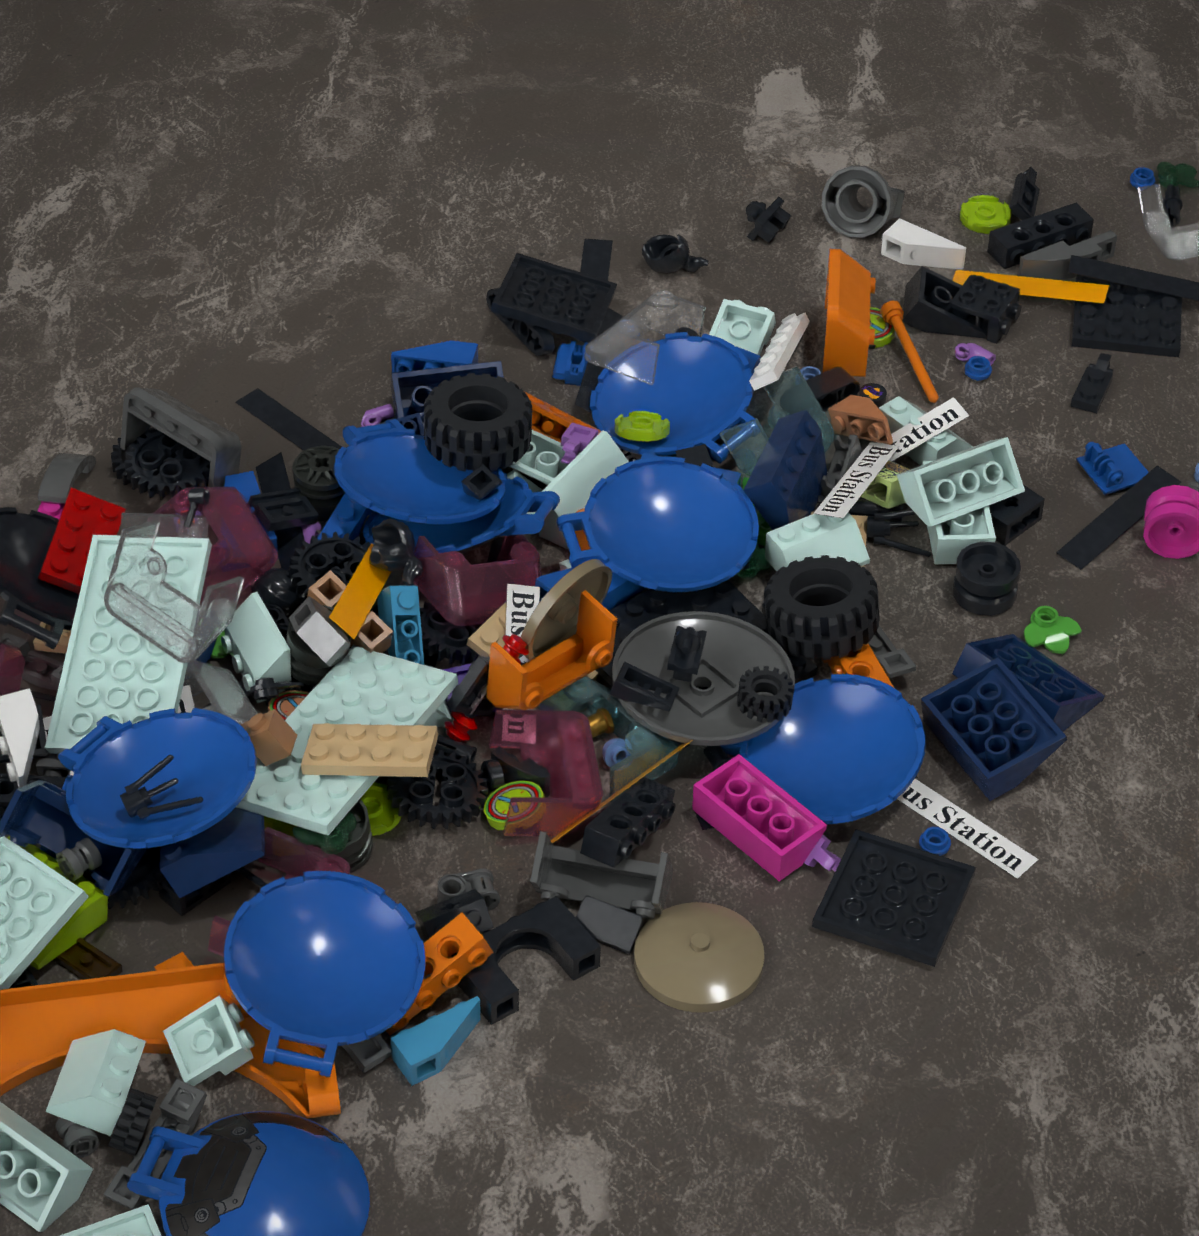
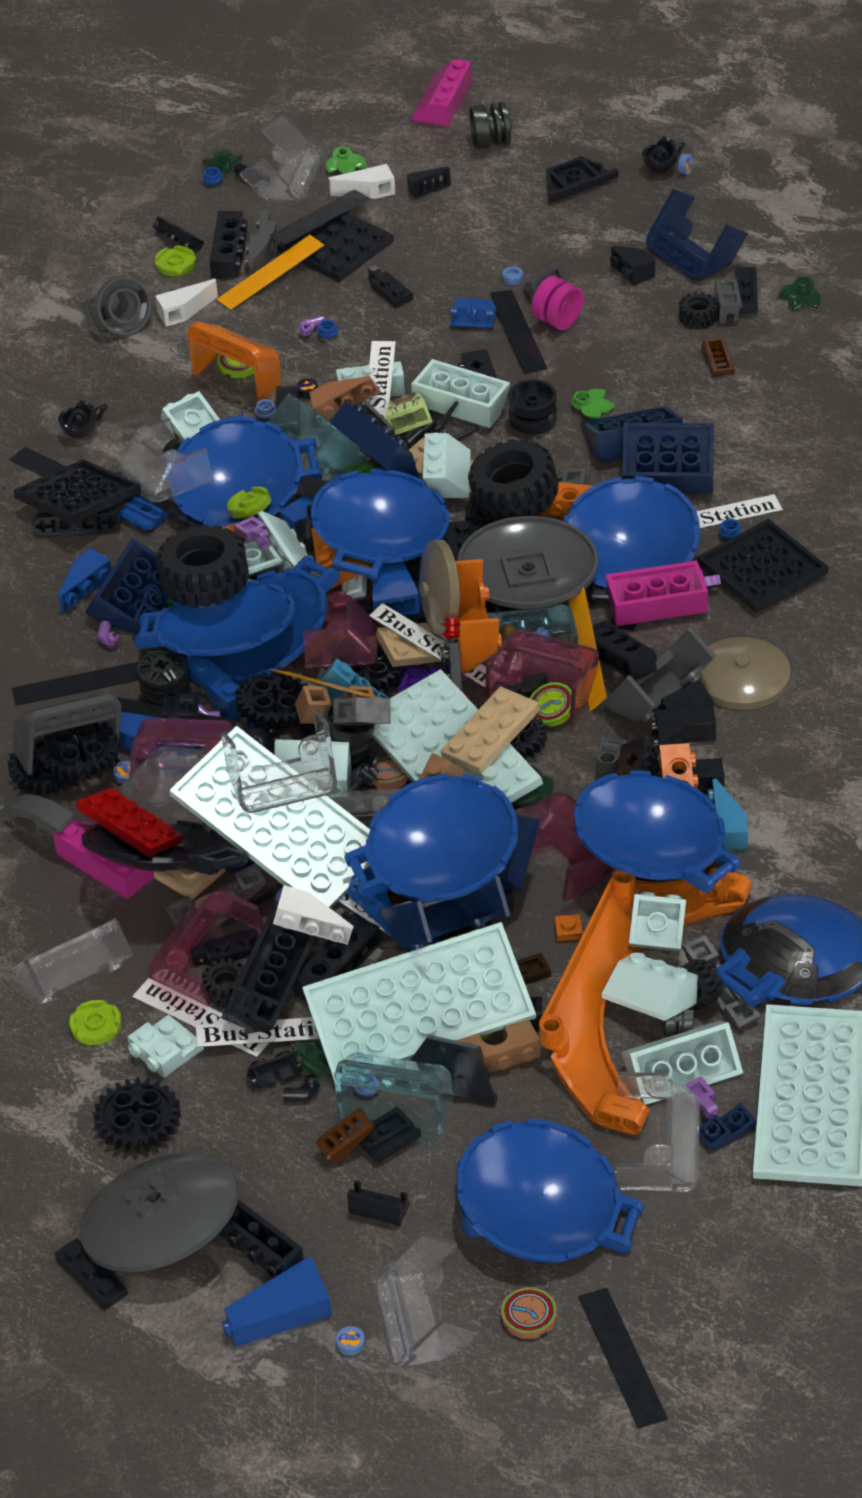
camera: 55 degrees left, 0 degrees up
(79, 859) = (458, 920): dark grey wheel -> none
(137, 800) = (449, 856): black plant -> none
(195, 497) = (156, 734): black hand -> none
(395, 550) = (296, 653): black hair -> none
(480, 482) = (256, 592): black slope -> none
(633, 686) = (522, 589): black slope -> none
(686, 653) = (511, 550): black hips -> none
(763, 217) = (86, 361): black hips -> none
(765, 706) = (574, 535): black tyre -> none
(779, 350) = (245, 402): white plate -> none
(856, 480) = (408, 418): white sticker -> none
(893, 314) = (296, 353): orange piece -> none
(930, 310) = (255, 317): black slope -> none
(962, 482) = (454, 370): light aqua slope -> none
(990, 301) = (277, 292): black bracket -> none

